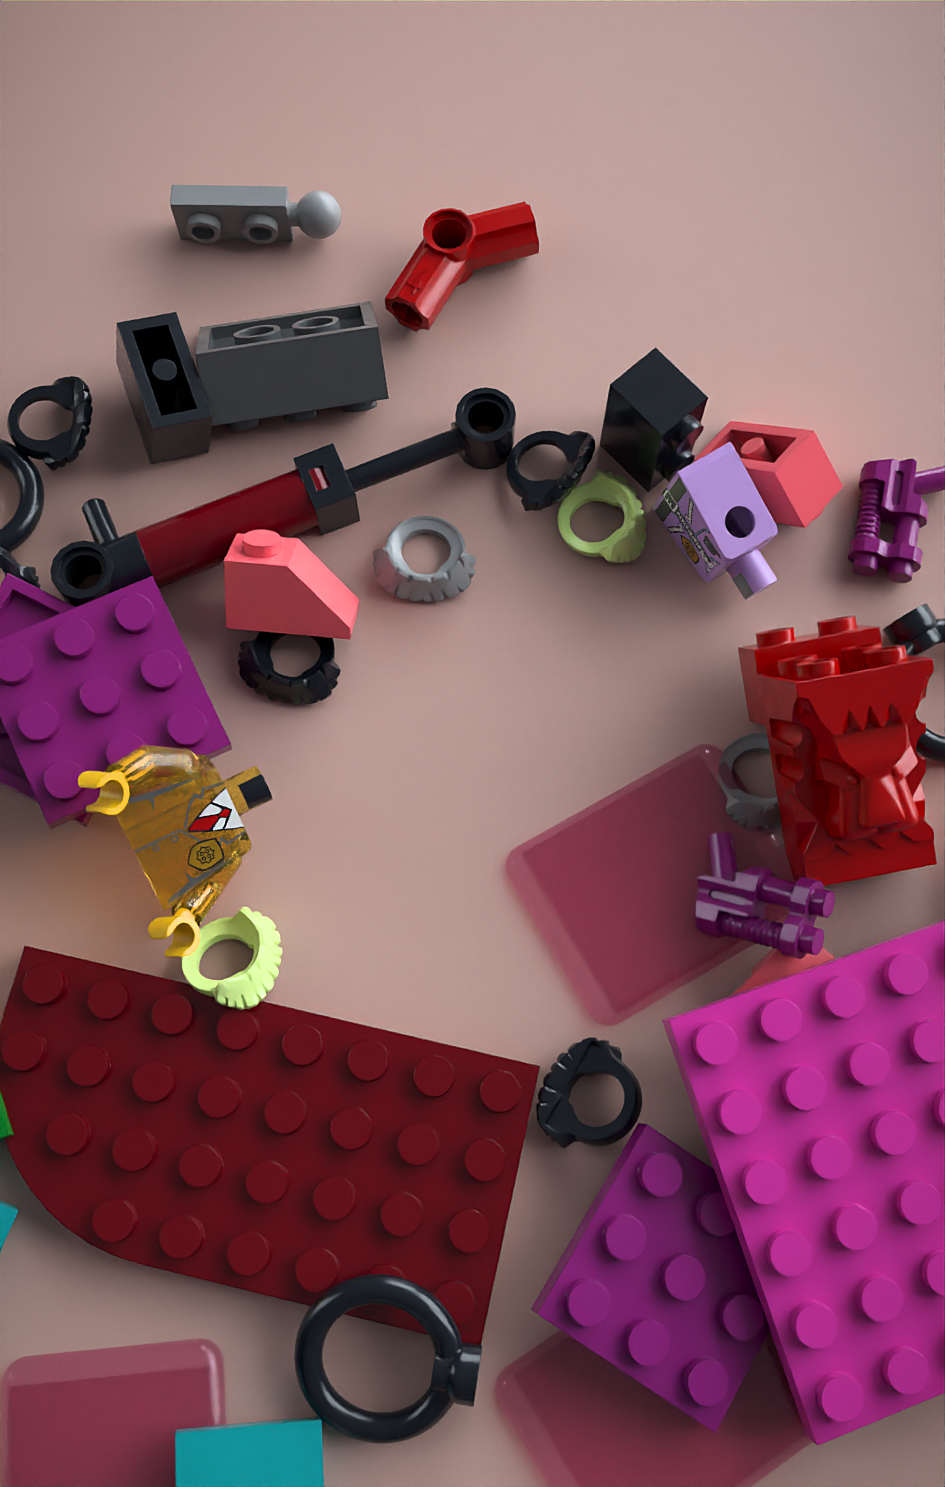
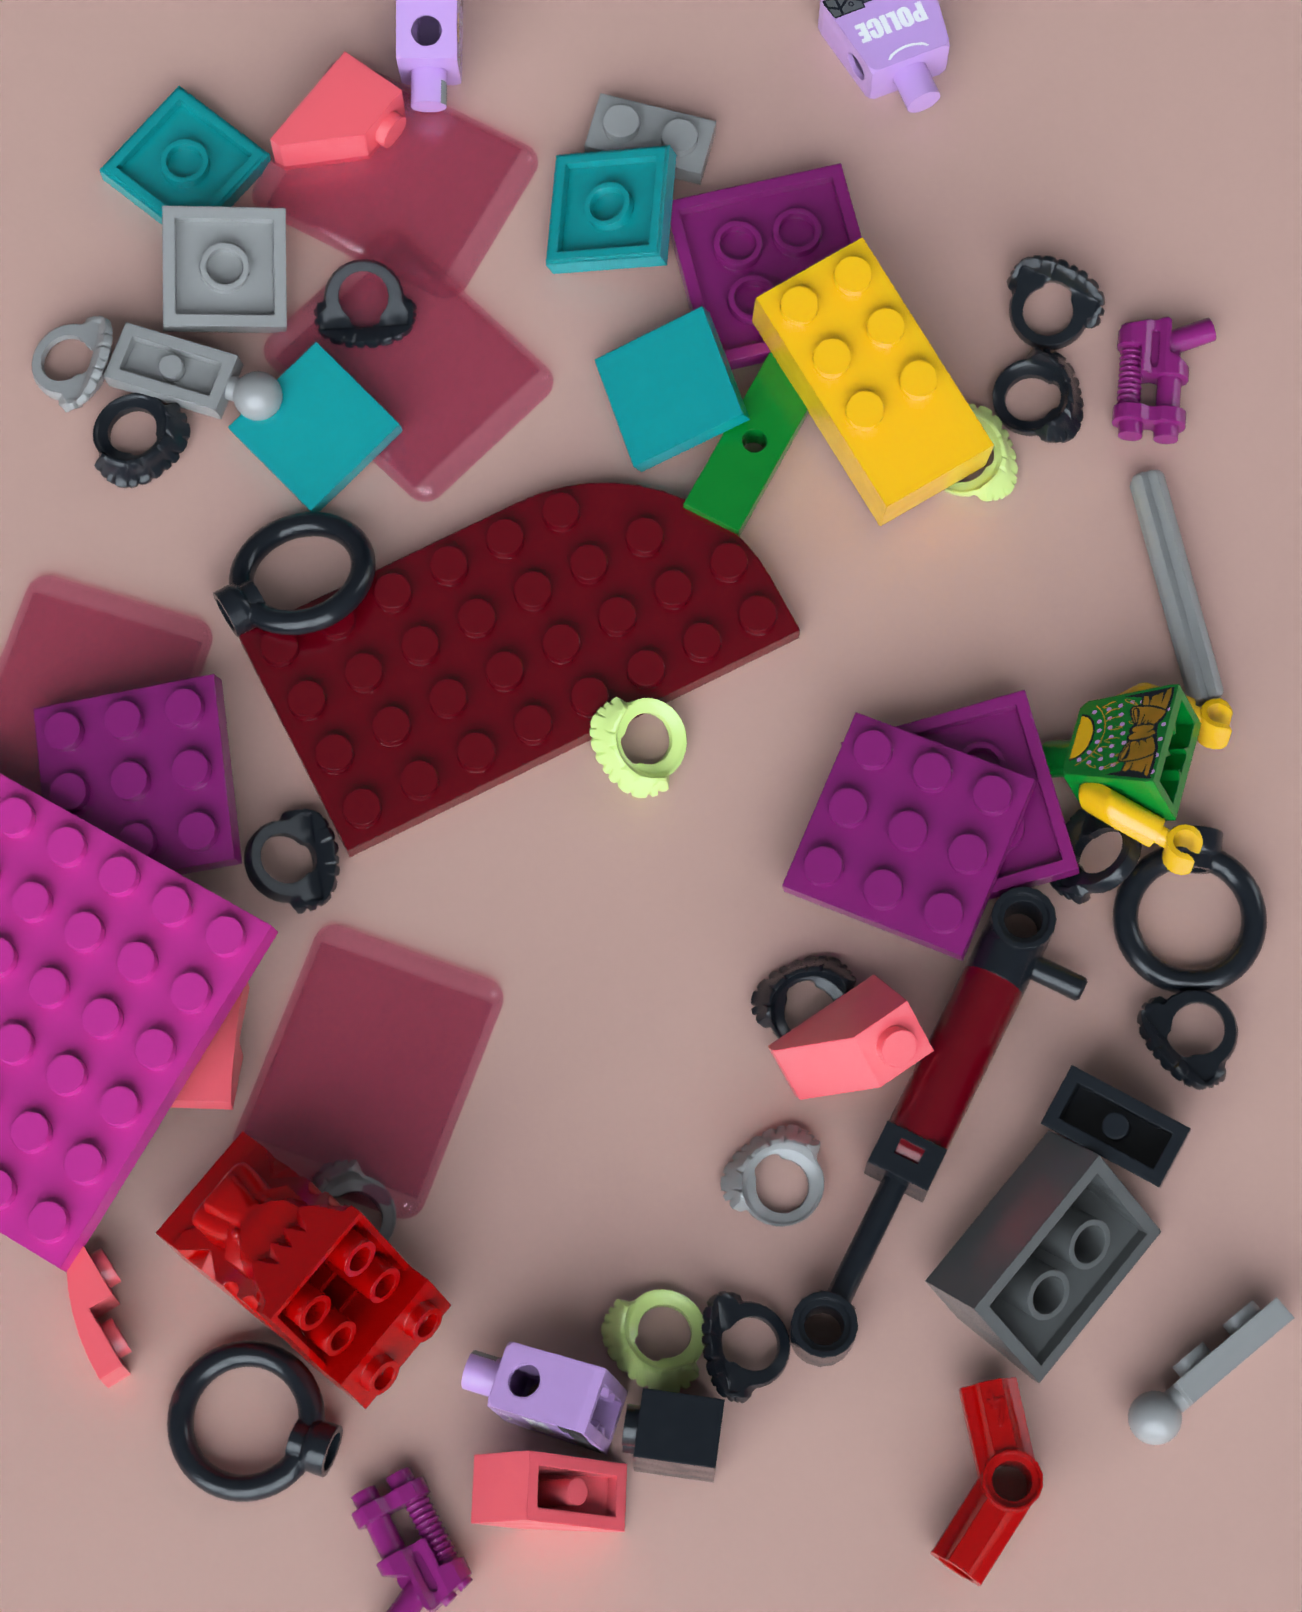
camera: 140 degrees right, 0 degrees up
(180, 828) = (755, 787): clear yellow torso -> none
(735, 903) = (291, 1087): magenta piece -> none

